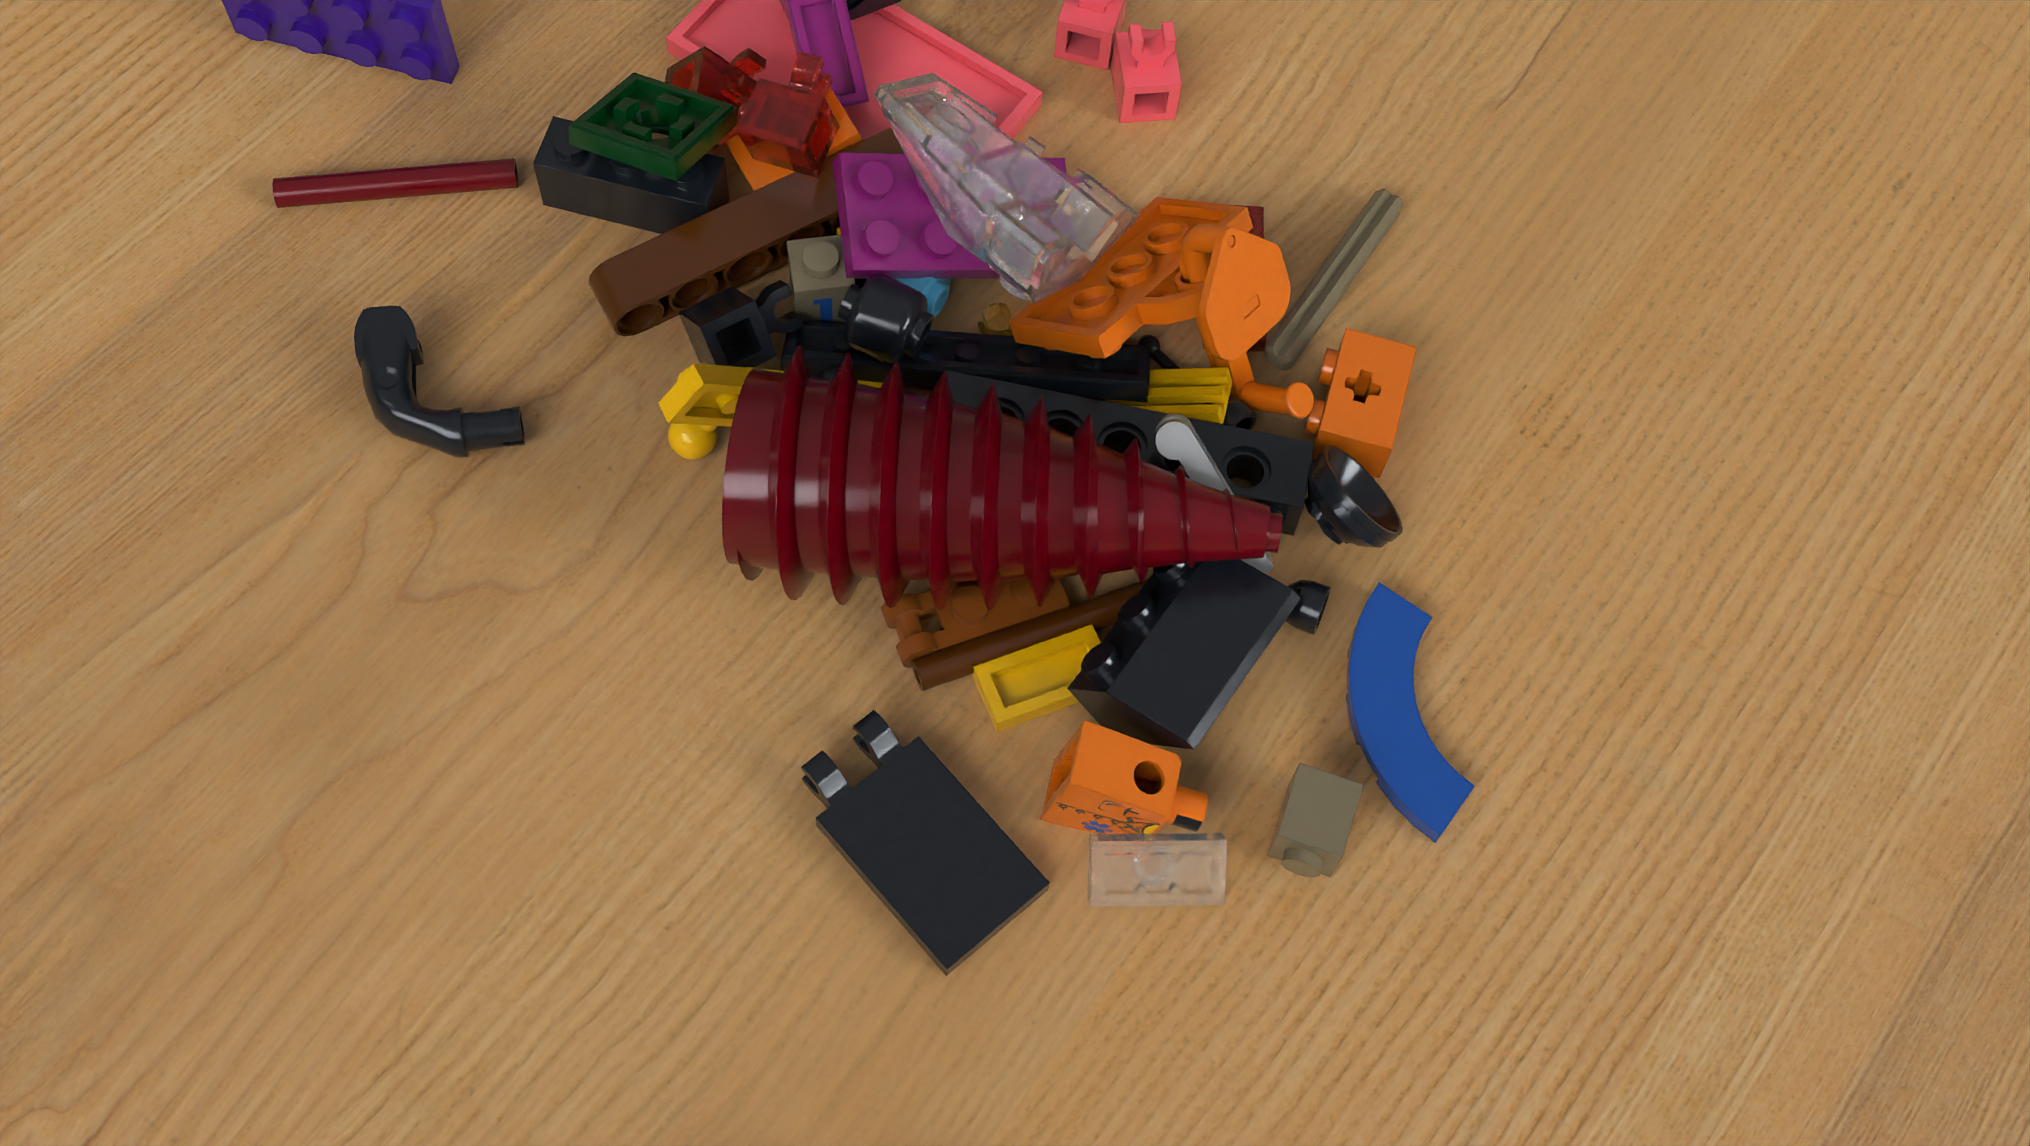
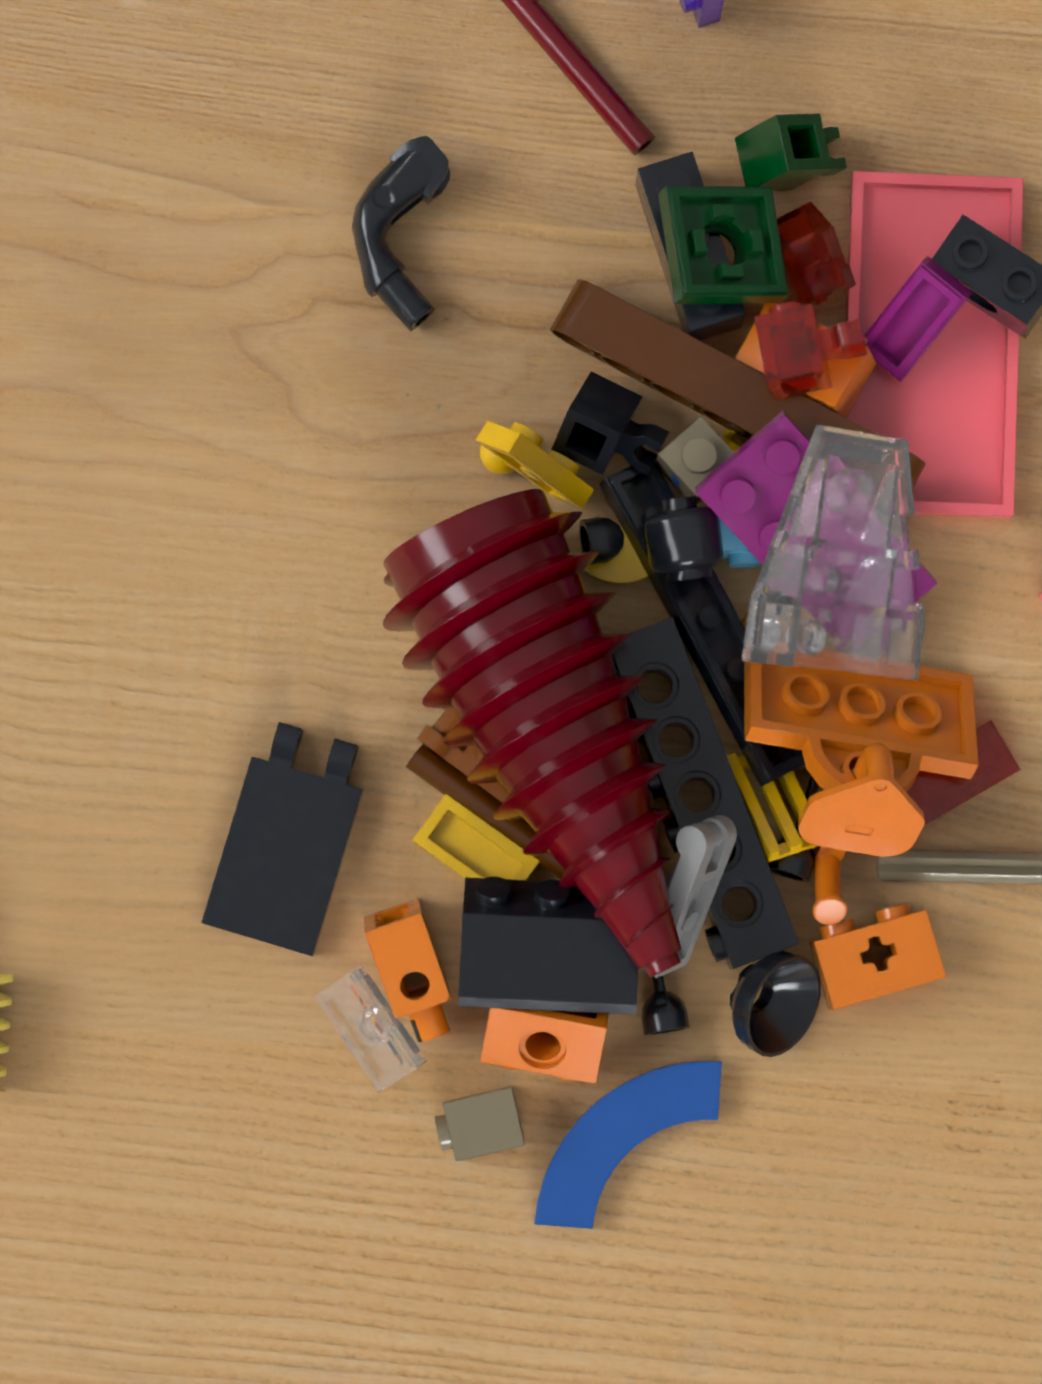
camera: 65 degrees right, 20 degrees up
(606, 55) = (787, 151): none -> dark green brick
(1292, 698) = (546, 1042): none -> orange brick

